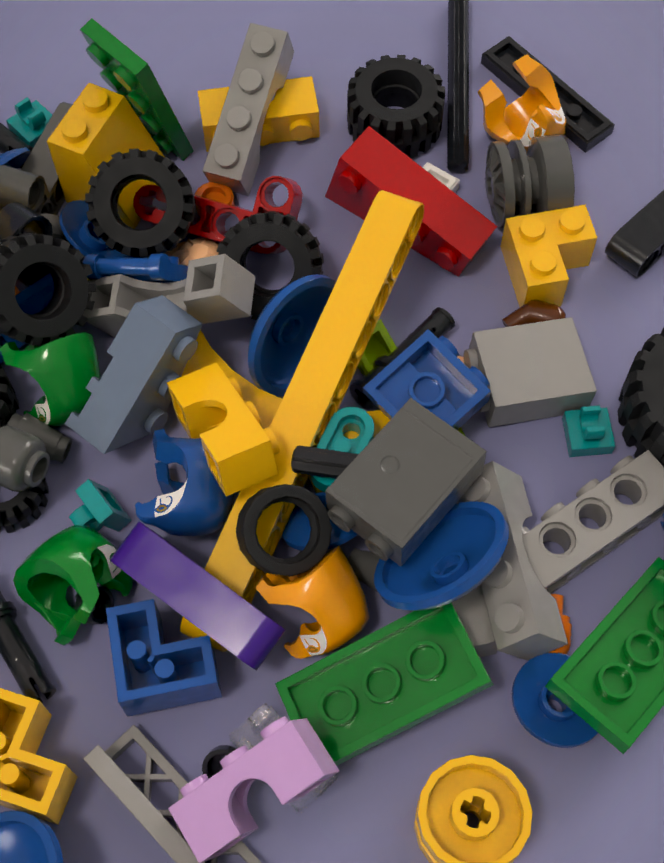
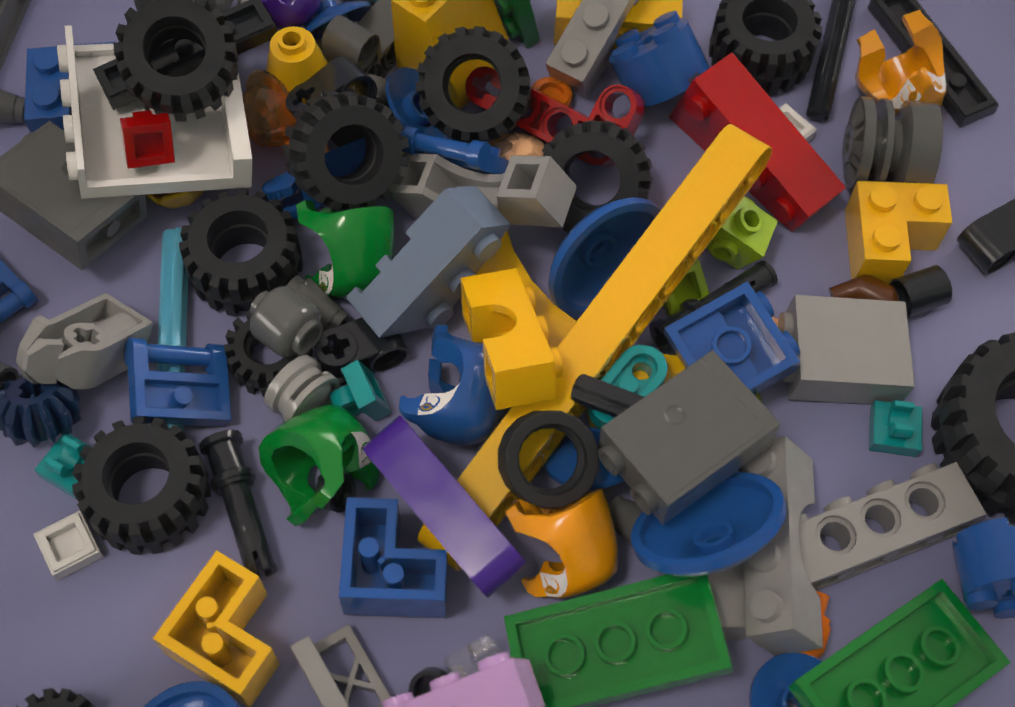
camera: 10 degrees right, 0 degrees up
(40, 516) = (300, 388): none -> light grey wheel
(84, 463) = (358, 342): none -> black piece
(304, 145) = (658, 59): none -> blue brick
(415, 288) = (743, 235): none -> lime brick
(585, 303) = (923, 289): none -> black beam

